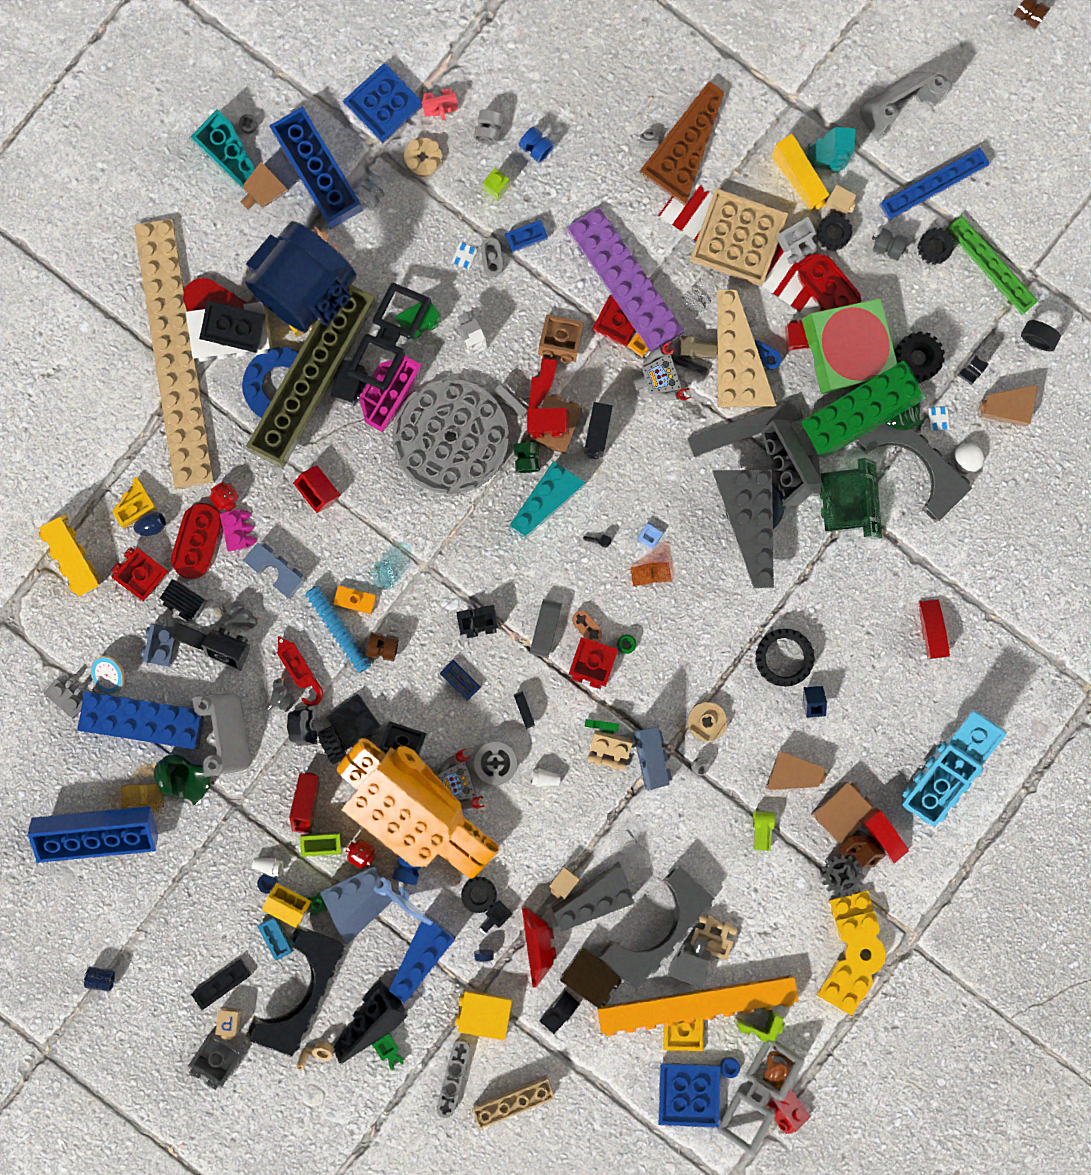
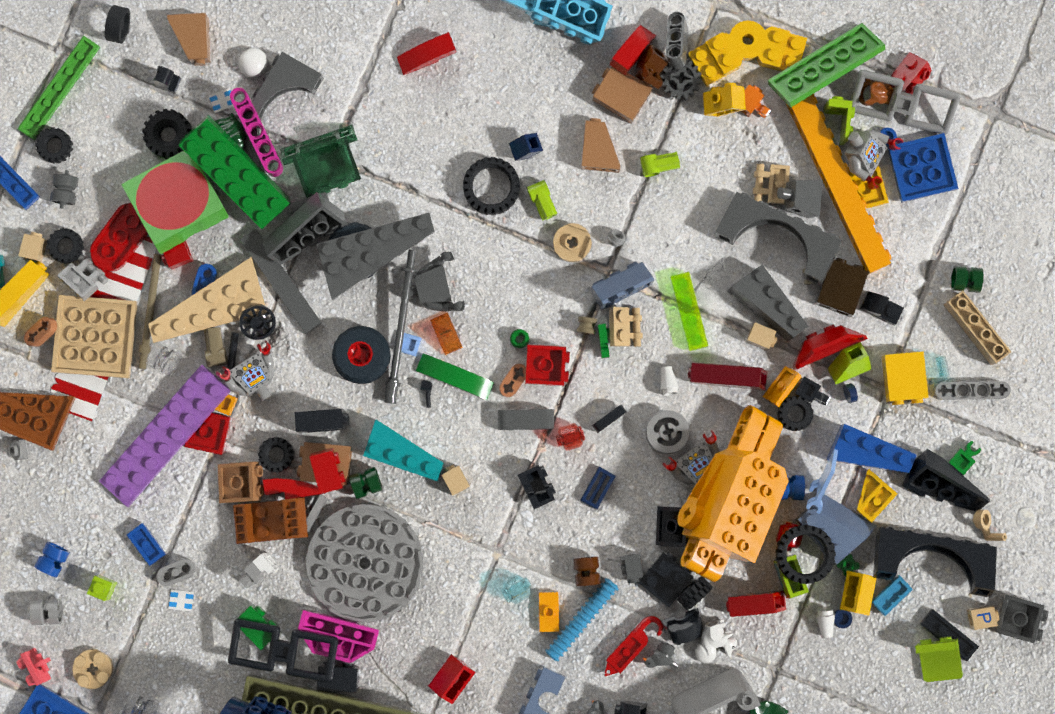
camera: 105 degrees left, 0 degrees up
(200, 967) = (940, 659): none -> lime bracket
(284, 752) = (712, 638): none -> white animal
(317, 877) = (824, 569): none -> black tyre
(373, 691) = (632, 567): none -> dark grey brick
(375, 949) = (874, 496): none -> yellow wing
(480, 1055) = (943, 371): none -> clear light blue tile
(506, 544) = (455, 479): none -> tan brick
(509, 889) = (782, 386): none -> light orange plate
(512, 962) = (849, 363): none -> lime slope
(515, 357) = (270, 520): none -> dark orange plate
(516, 667) = (570, 436): none -> clear red head
(533, 838) = (728, 376): none -> dark red slope
(565, 1105) = (967, 279): none -> dark green wheel
(578, 368) = (276, 466): none -> black tyre
(606, 571) = (454, 376): none -> green slope
(608, 818) = (689, 311): none -> clear neon green plate
(616, 509) = (393, 382): none -> dark grey bar
(621, 713) = (586, 325): none -> dark tan wheel
(652, 486) = (361, 354): none -> black wheel
(700, 573) = (433, 286): none -> dark grey torso
(711, 395) = (257, 322): none -> black wheel
(715, 282) = (145, 349): none -> dark tan bar
(719, 1041) = (866, 152): none -> light grey torso
(755, 188) = (40, 331): none -> nougat beam
(761, 703) = (540, 196): none -> lime piece
(801, 939) = (753, 97): none -> orange brick
(809, 912) = (724, 100): none -> yellow brick
(819, 1027) = (826, 65): none -> bright green plate
(875, 880) = (676, 30): none -> dark grey beam
(906, 437) = (251, 124): none -> dark pink beam

